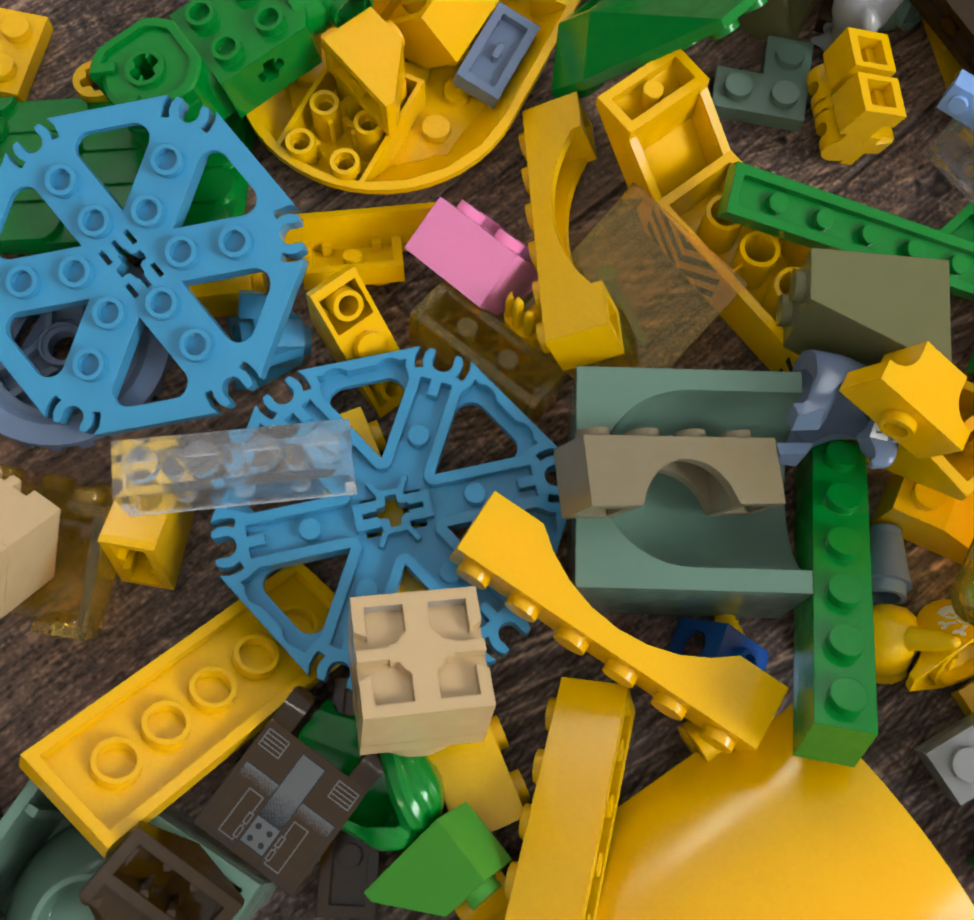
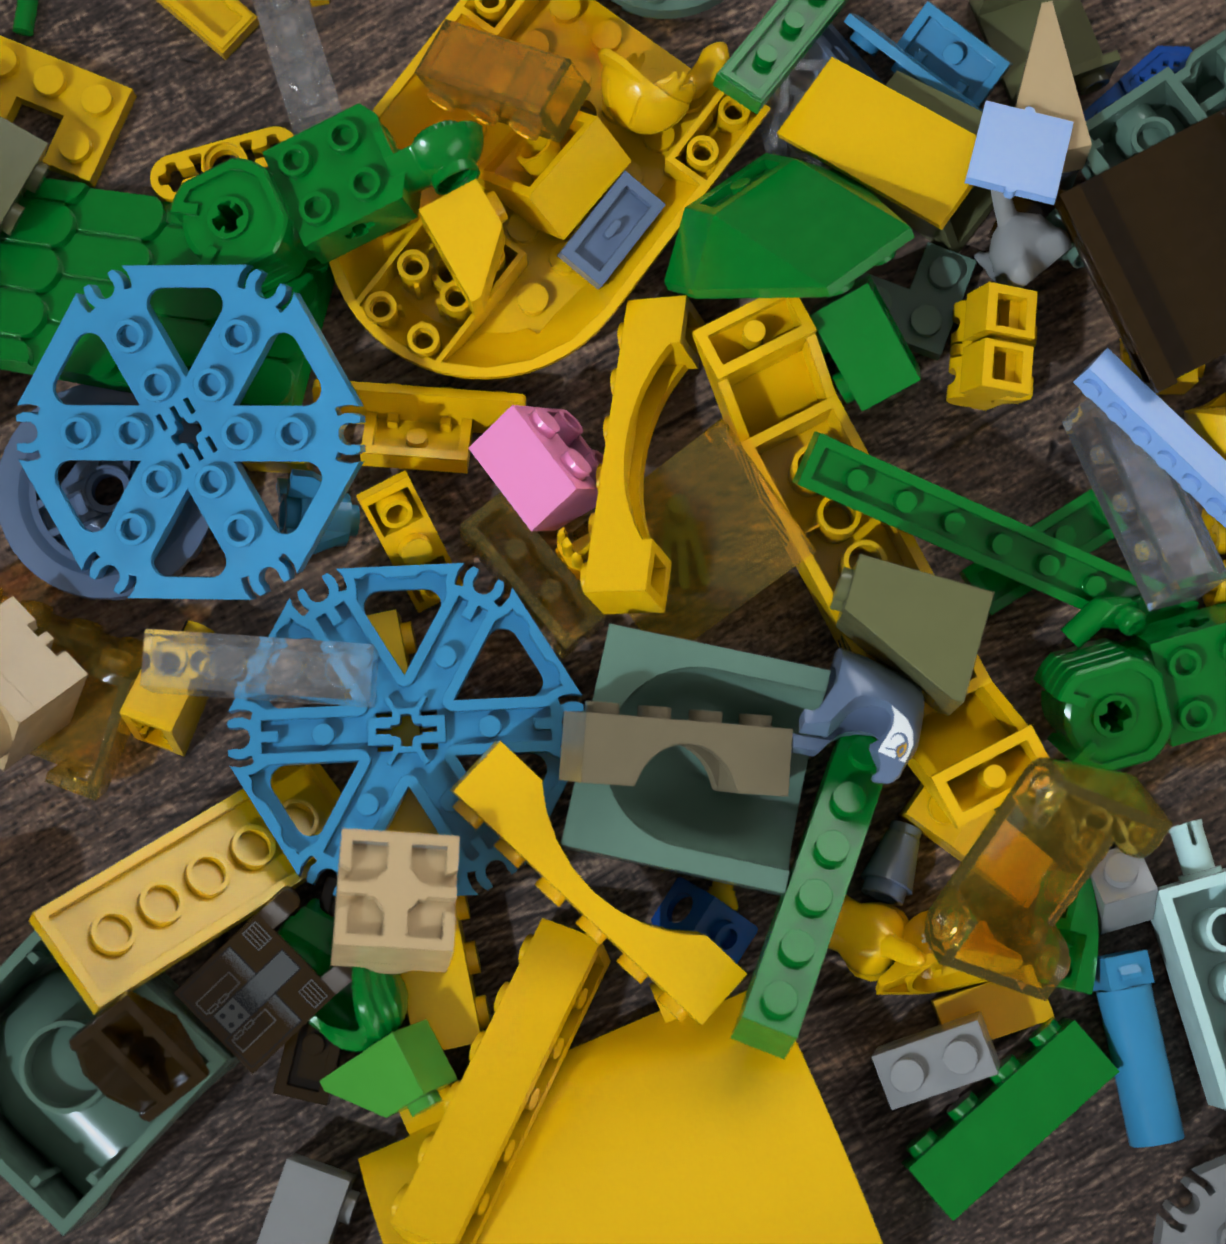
camera: 15 degrees right, 10 degrees up
(752, 100) = (865, 345): none -> green brick
(912, 399) = (918, 727): yellow brick -> none

